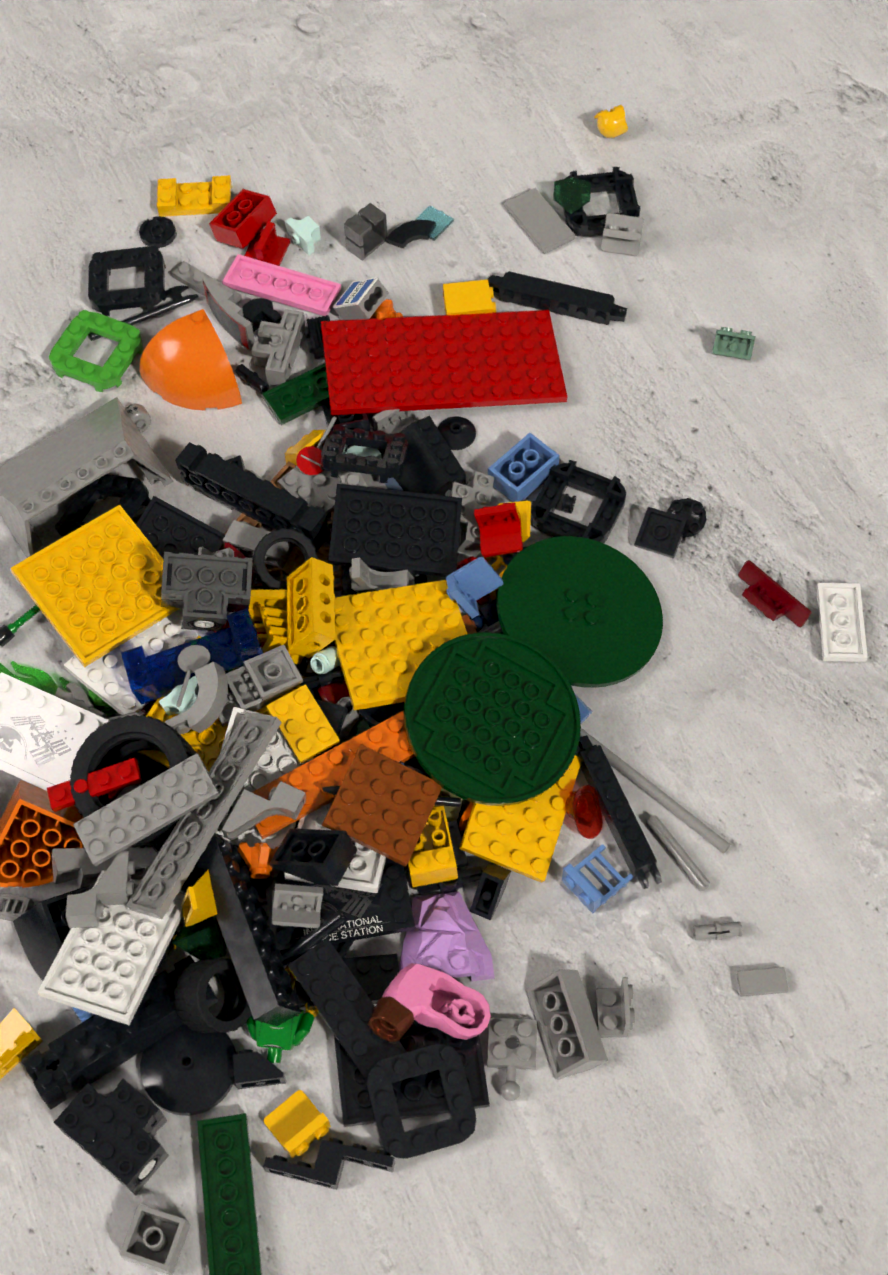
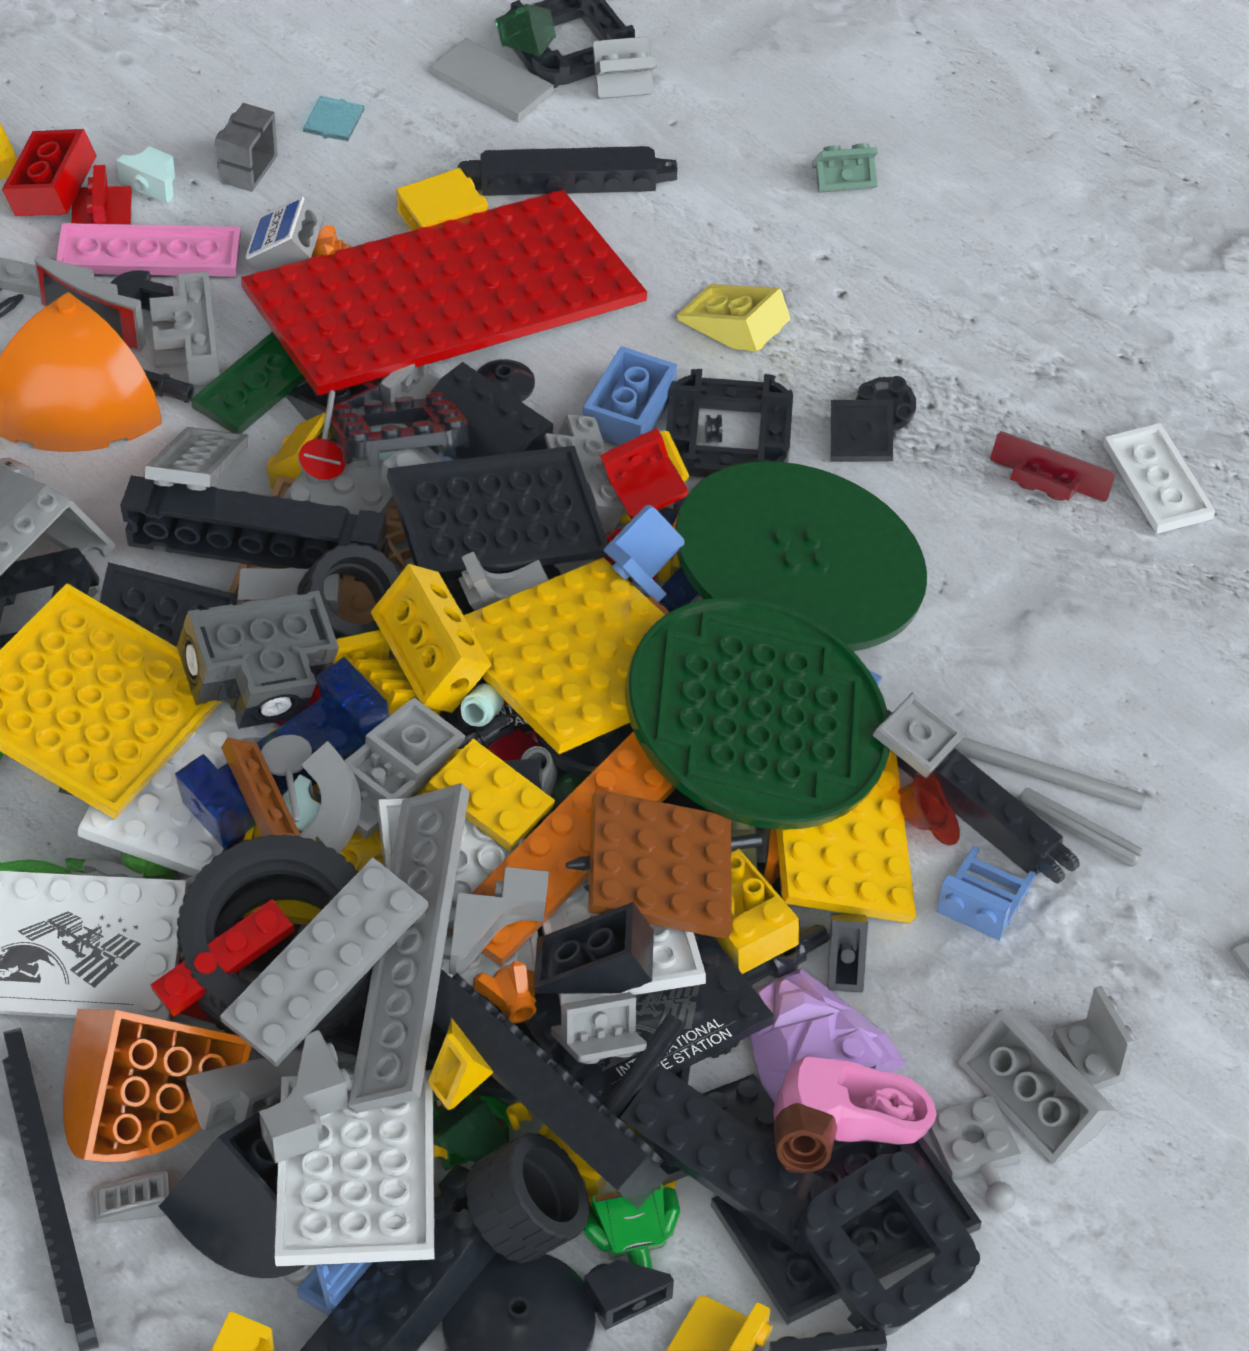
camera: 25 degrees left, 10 degrees down
(165, 681) = (259, 788): none -> dark orange plate
(238, 438) = (196, 458): none -> light grey plate
(314, 332) = (237, 305): black brick -> none
(411, 231) = (310, 135): black tile -> none
(591, 762) = (918, 735): none -> light grey tile
(618, 428) = (737, 315): none -> light yellow slope
(717, 930) = (1163, 913): light grey pin -> none

